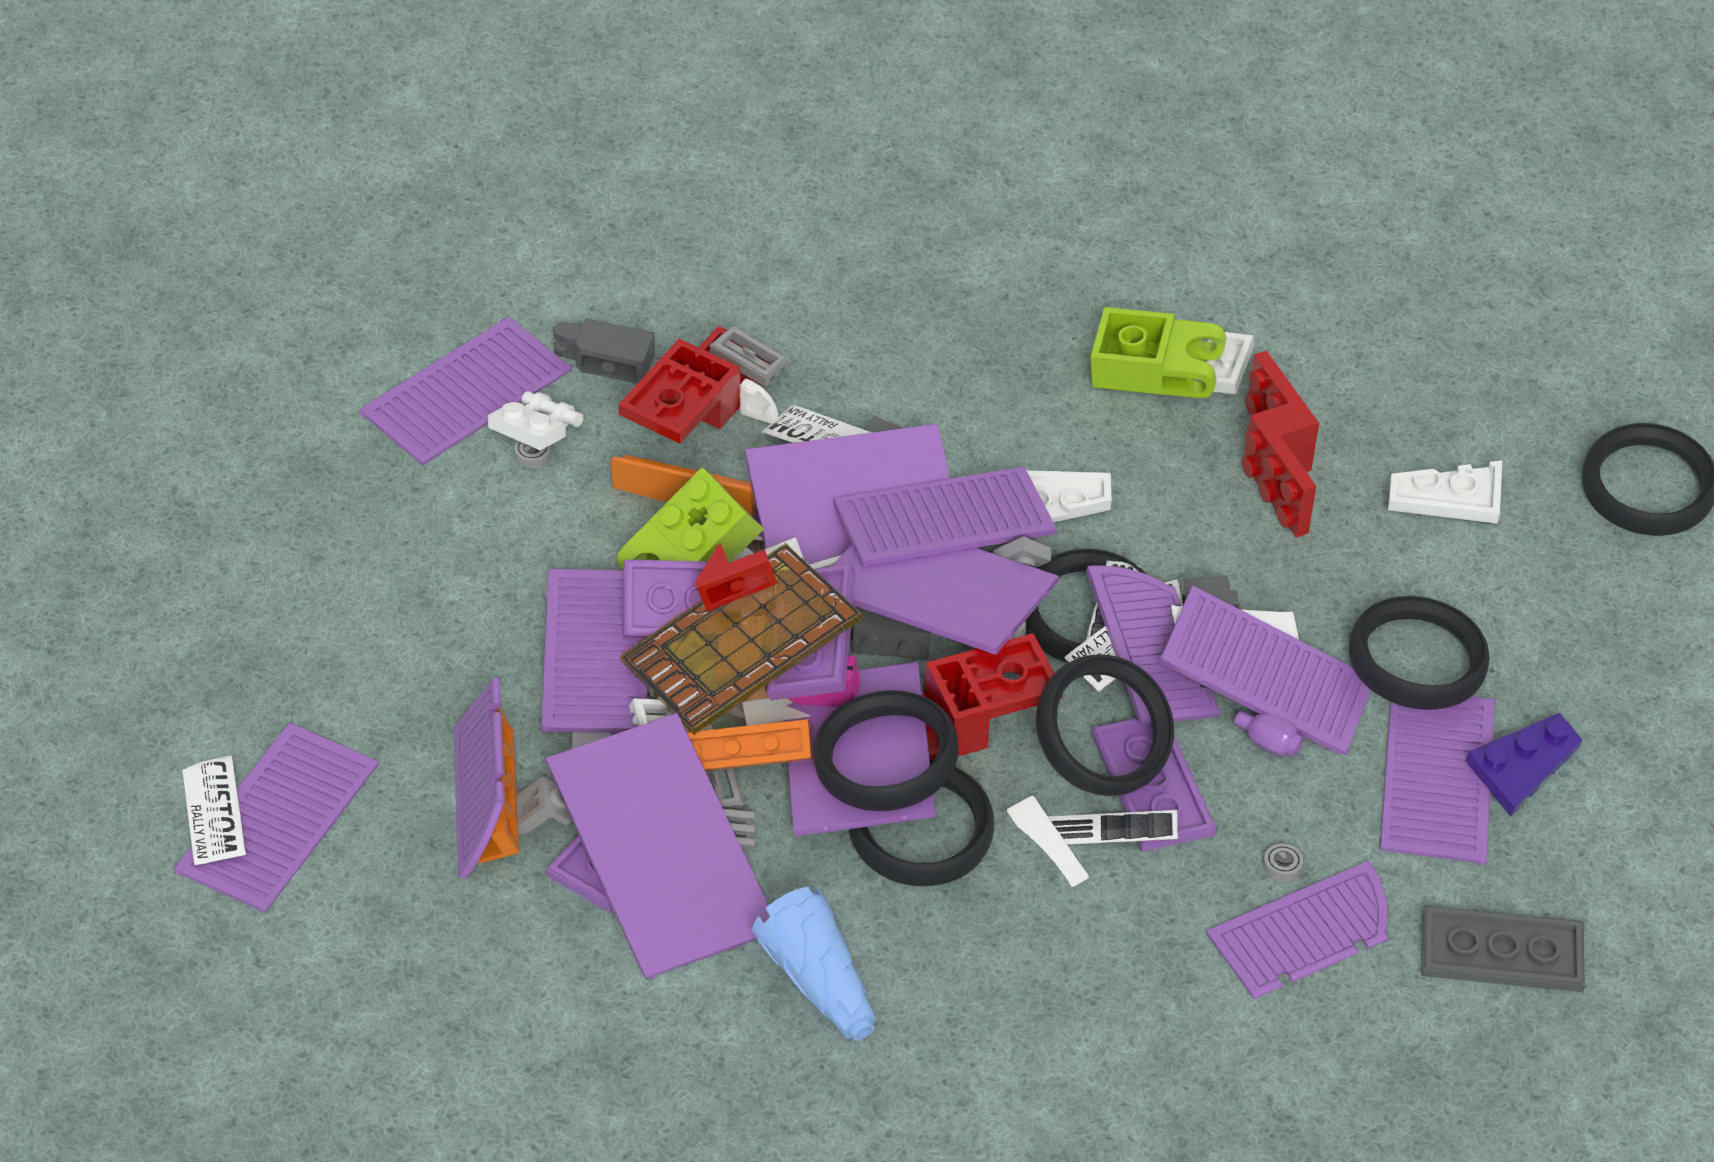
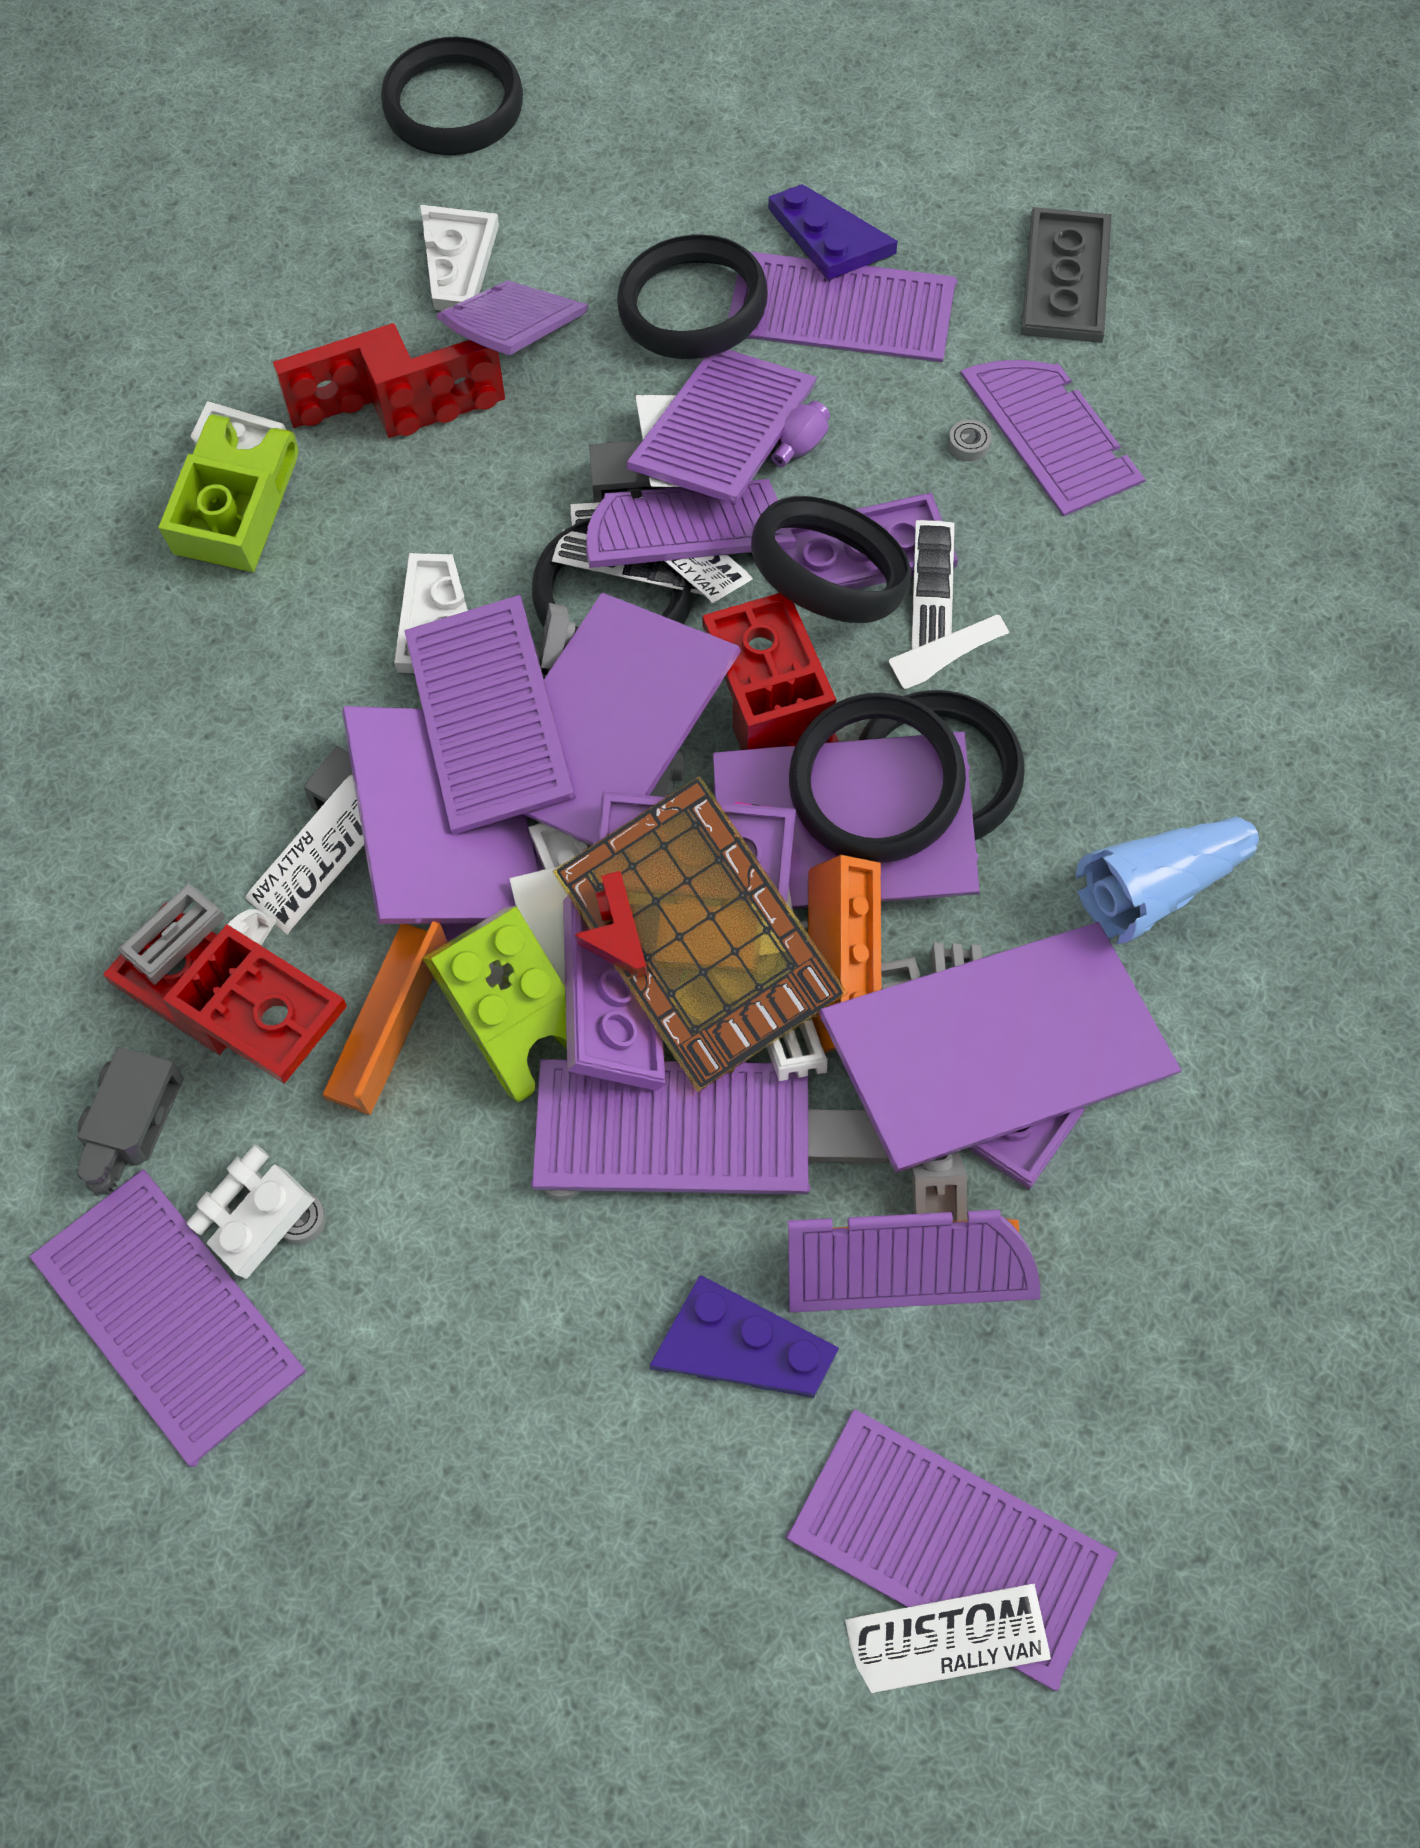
camera: 85 degrees left, 15 degrees up
(429, 697) = (742, 1343): none -> dark purple wing
(1357, 513) = (510, 316): none -> medium lavender piece

